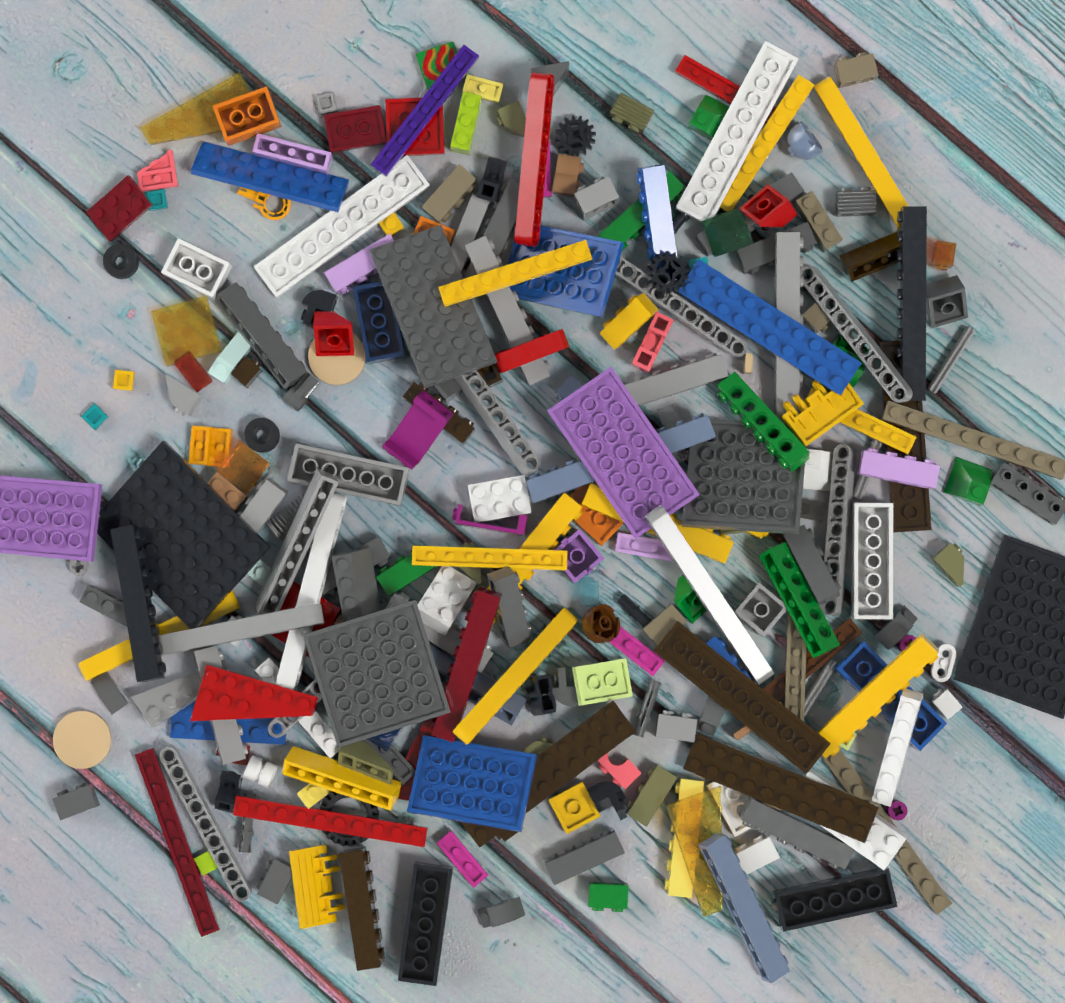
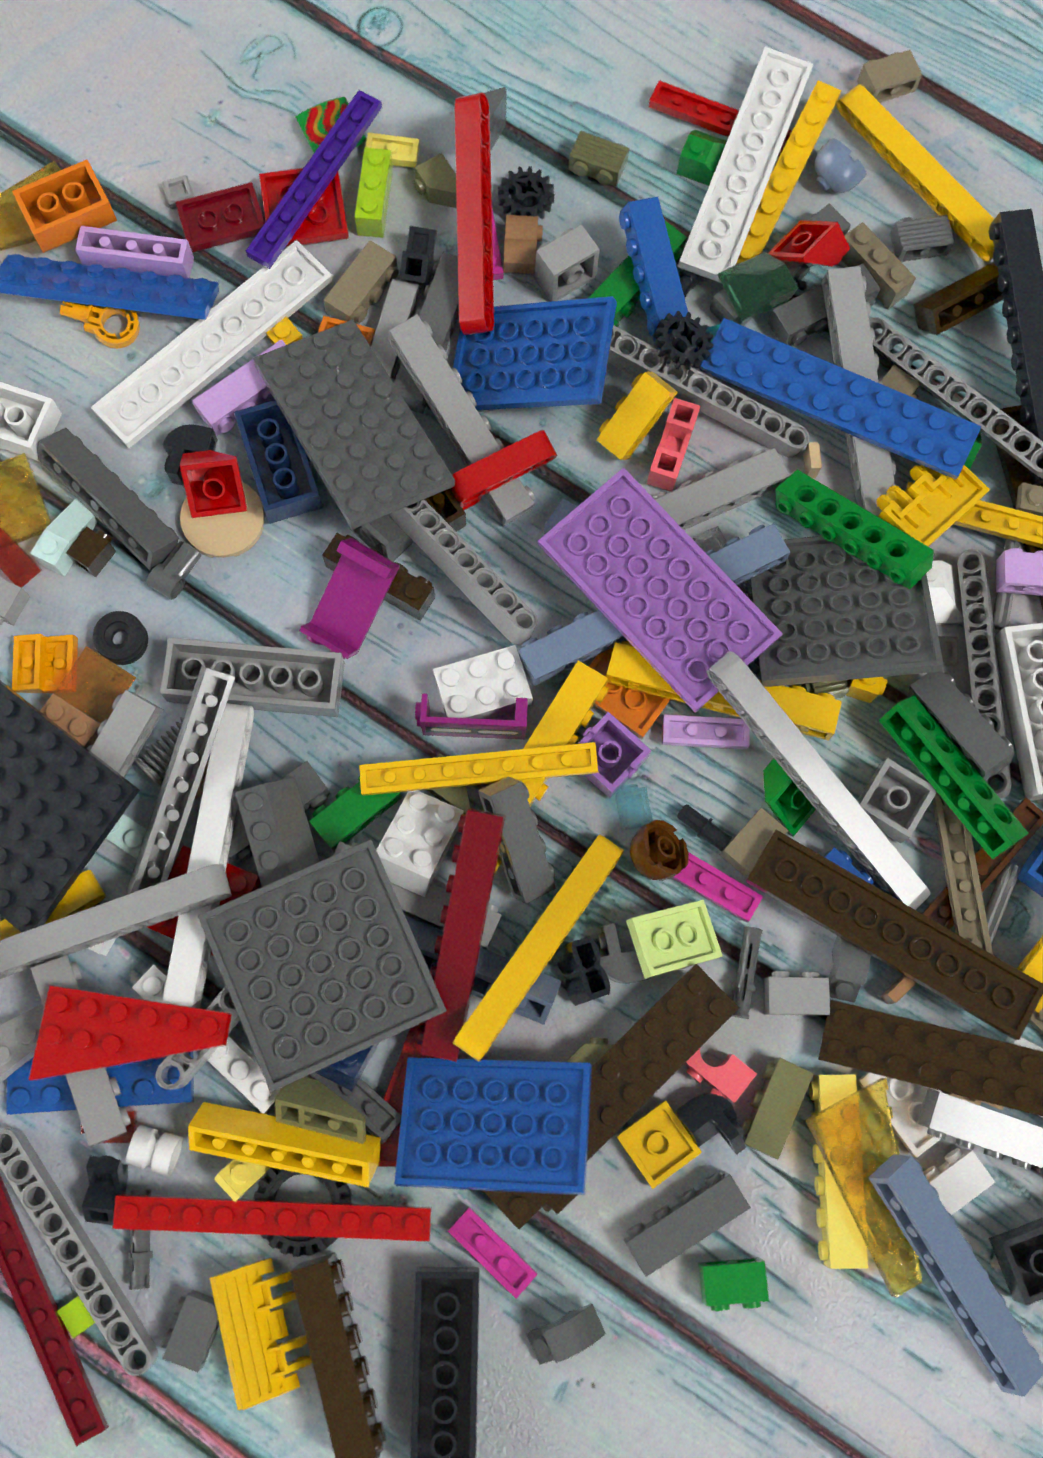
camera: 15 degrees left, 10 degrees down
(515, 273) = (466, 359): yellow plate -> none

